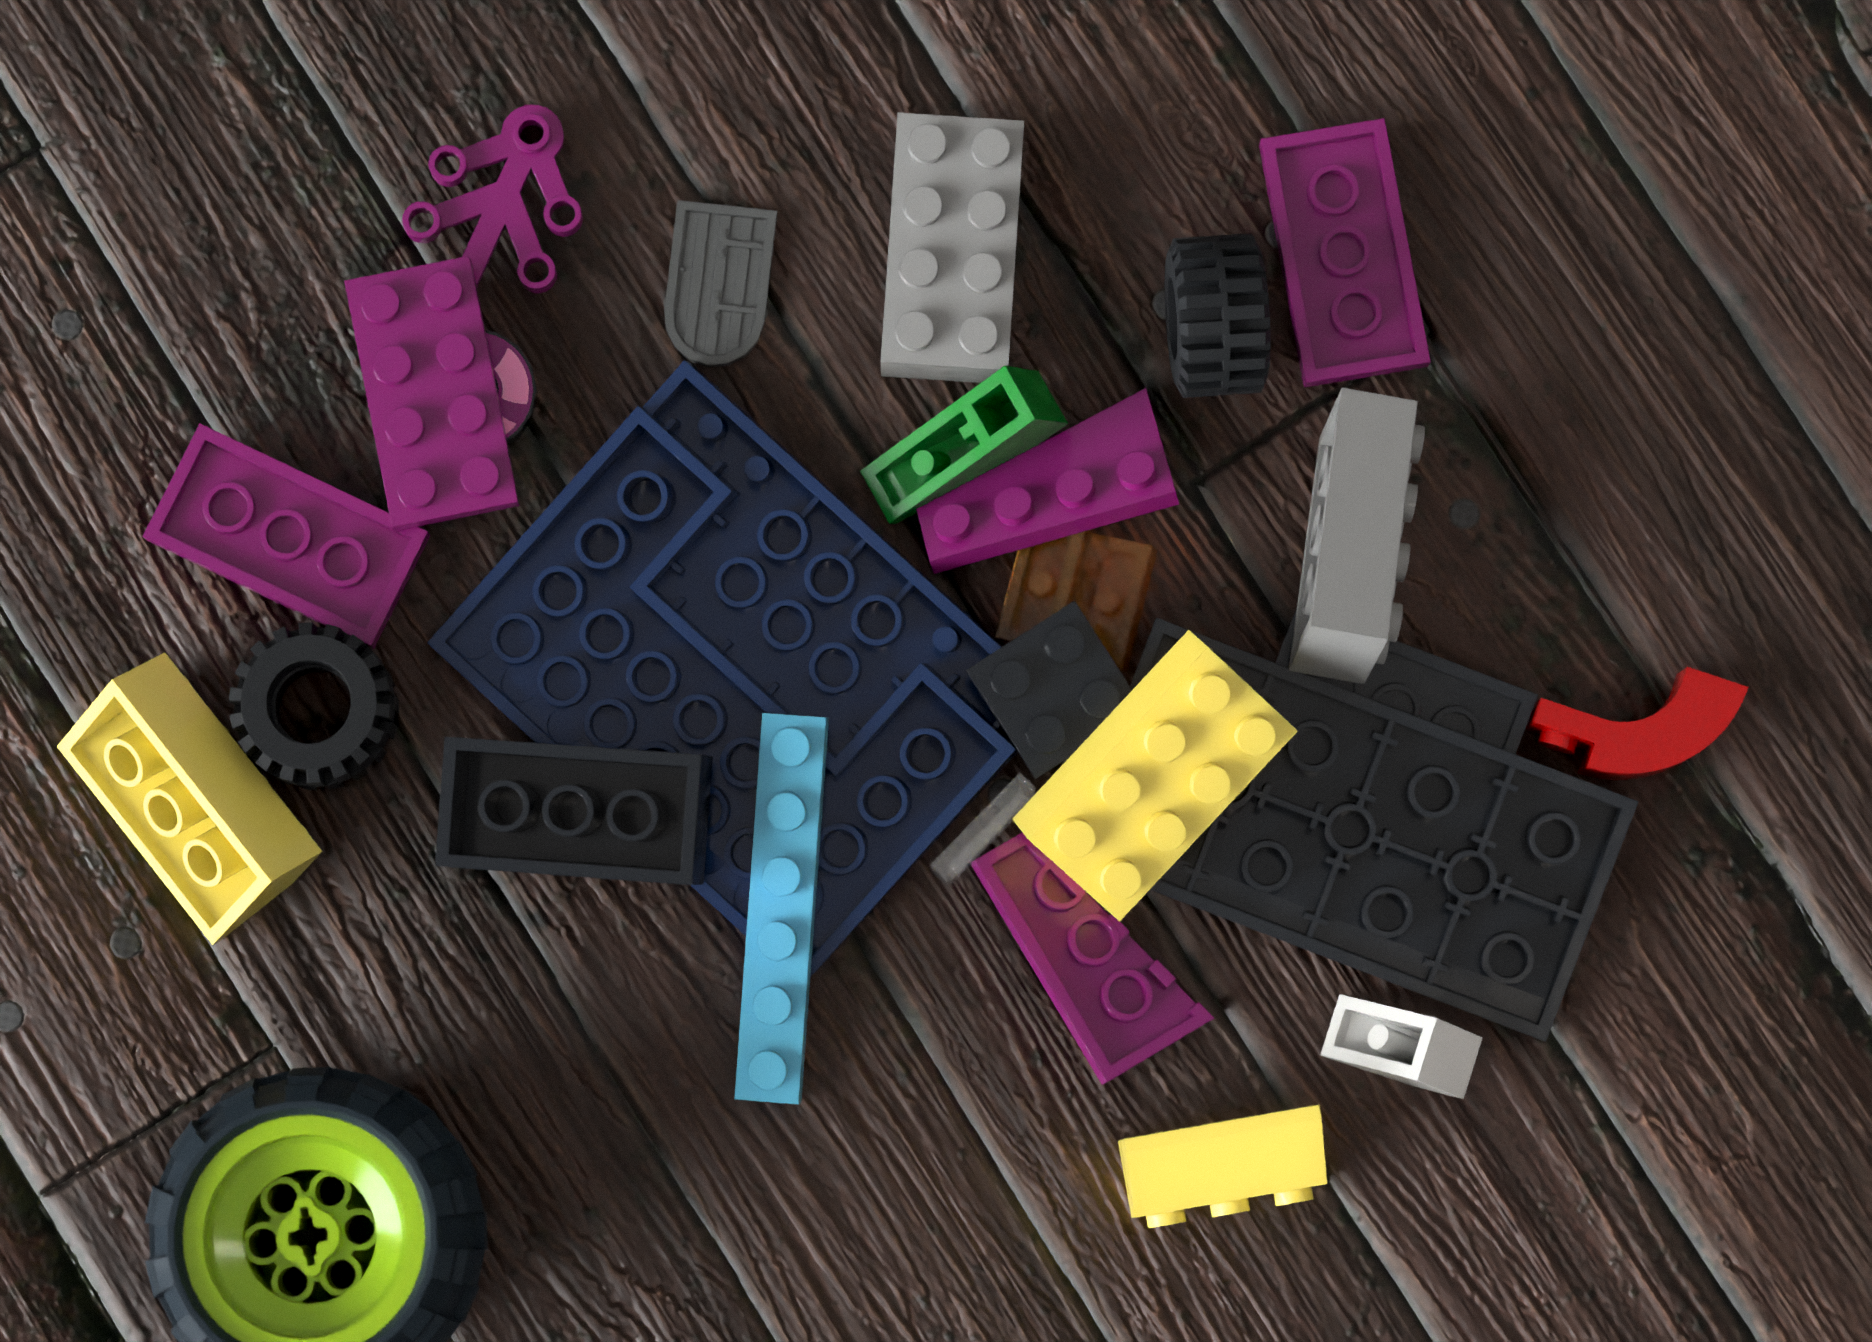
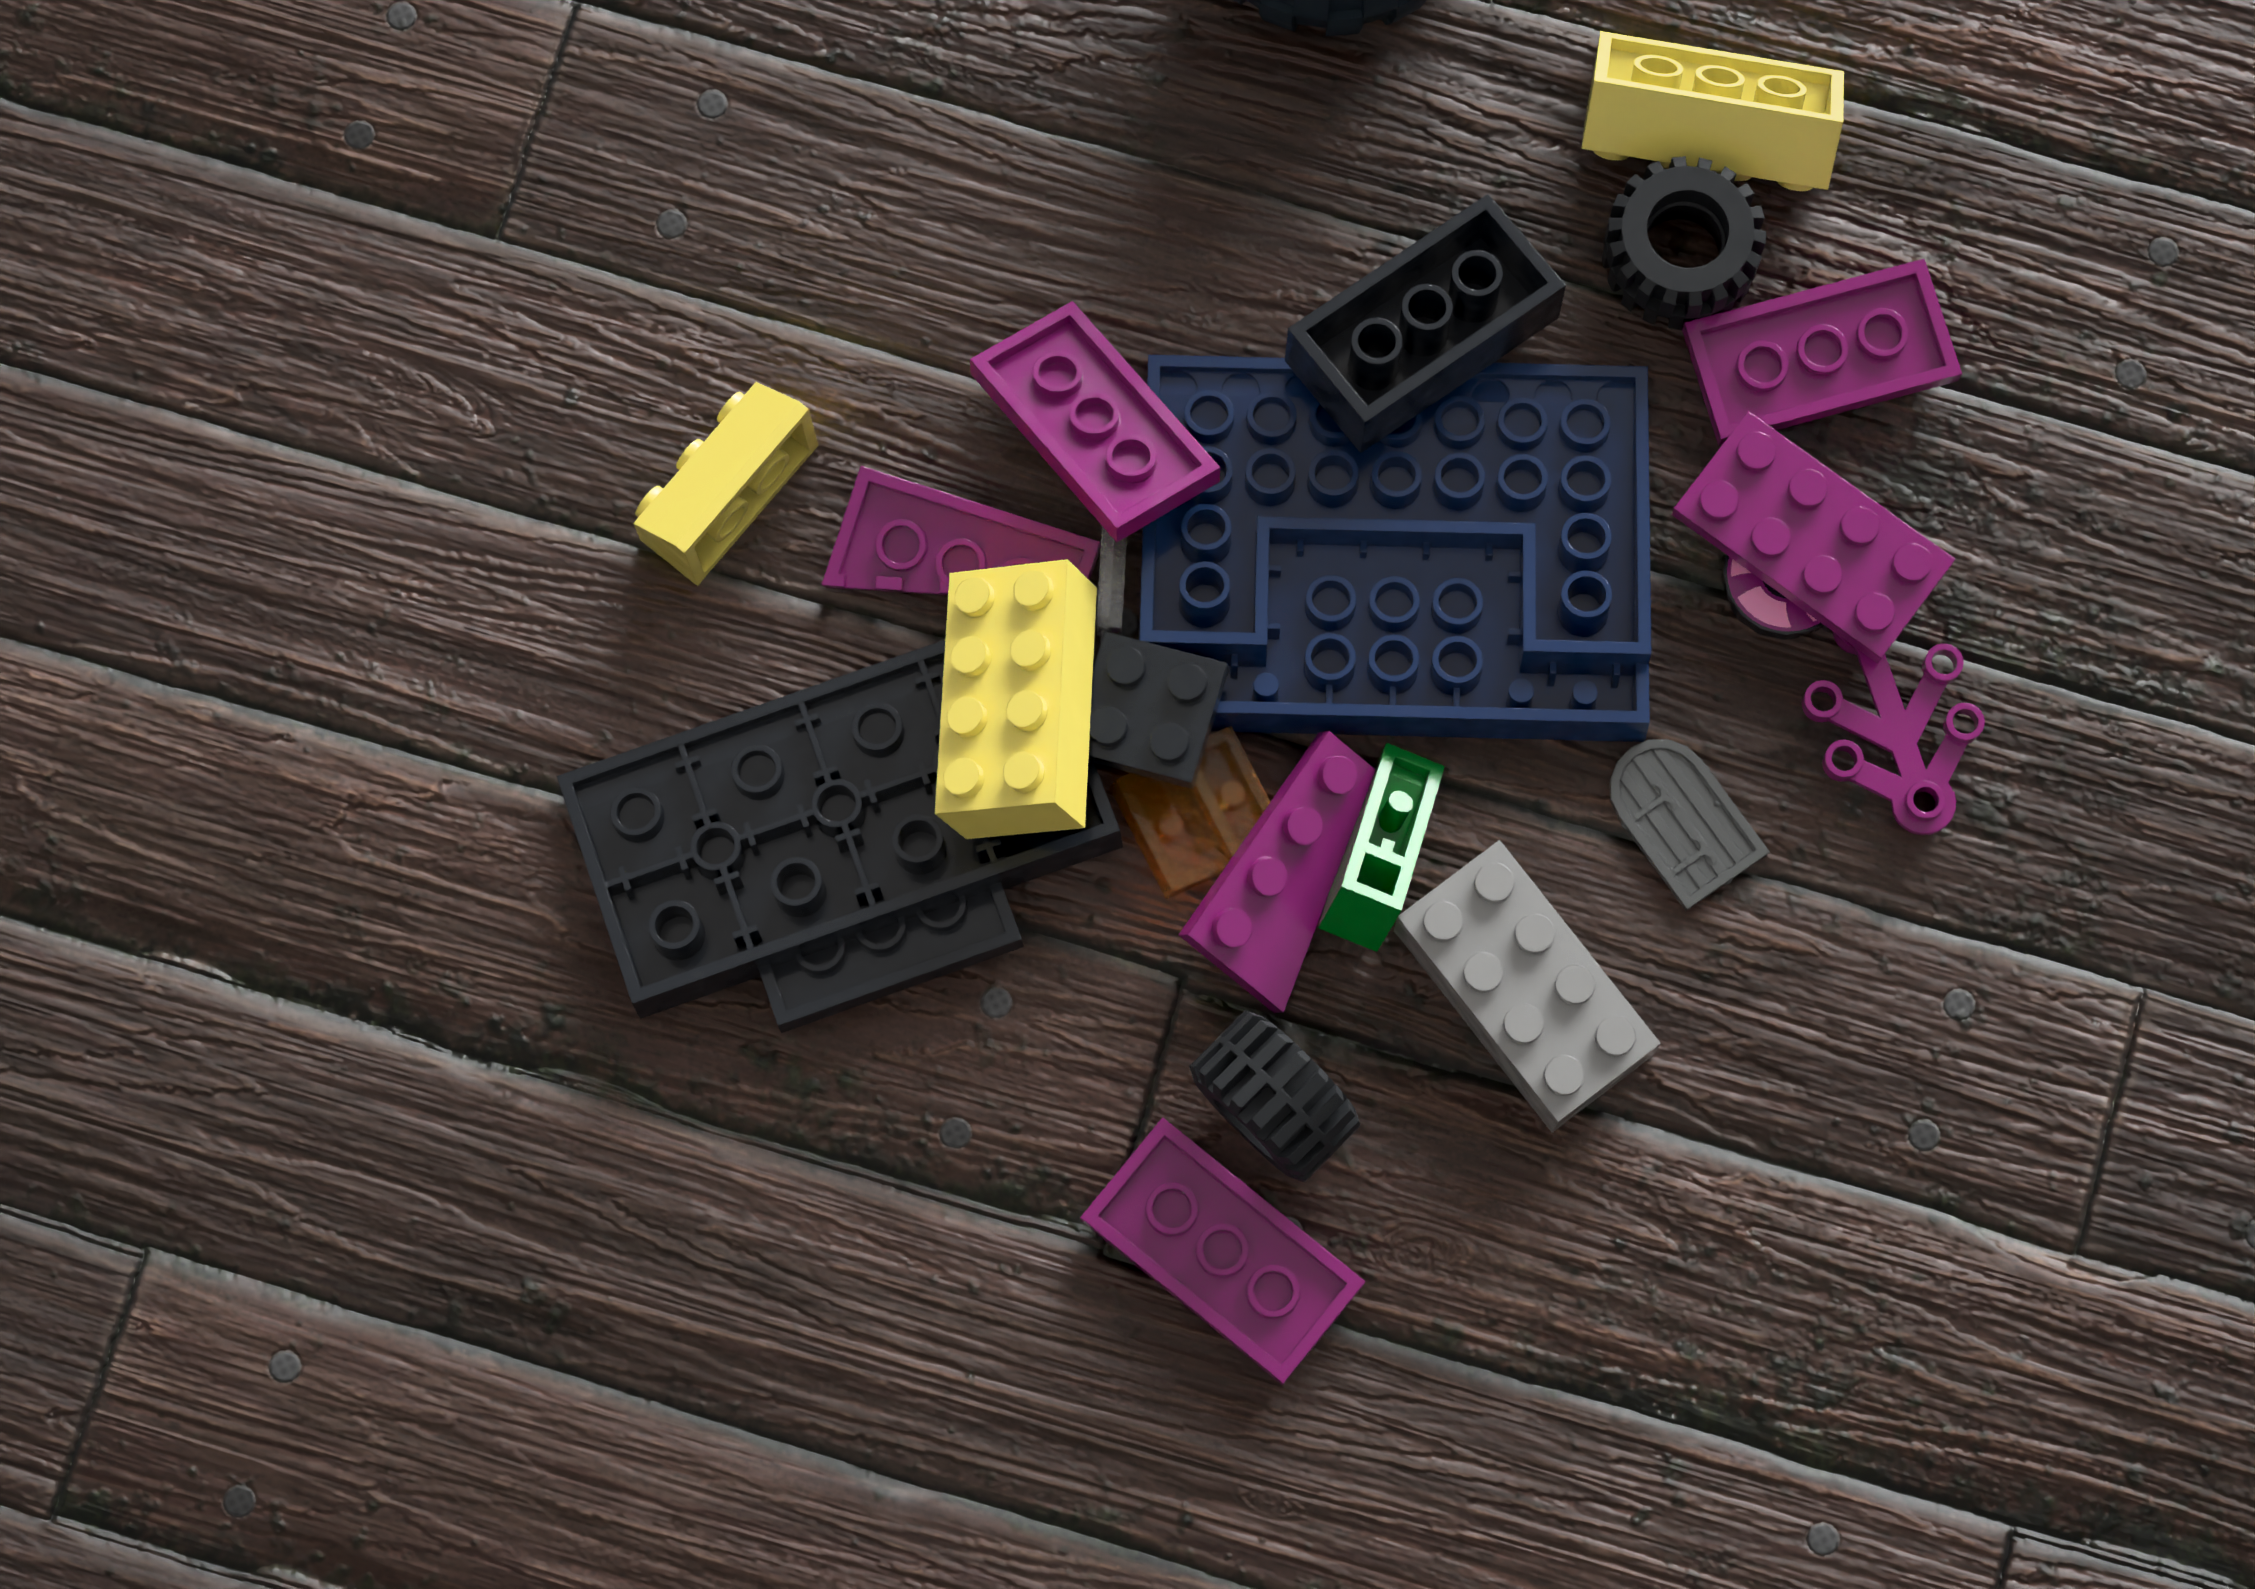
camera: 145 degrees right, 5 degrees down
(781, 908) = (1213, 392): medium azure plate -> none
(897, 956) = (1095, 421): none -> magenta plate
(1356, 535) = (1021, 1010): light grey brick -> none
(1402, 1045) = (661, 678): white slope -> none
(1686, 723) = (660, 1063): red arch -> none

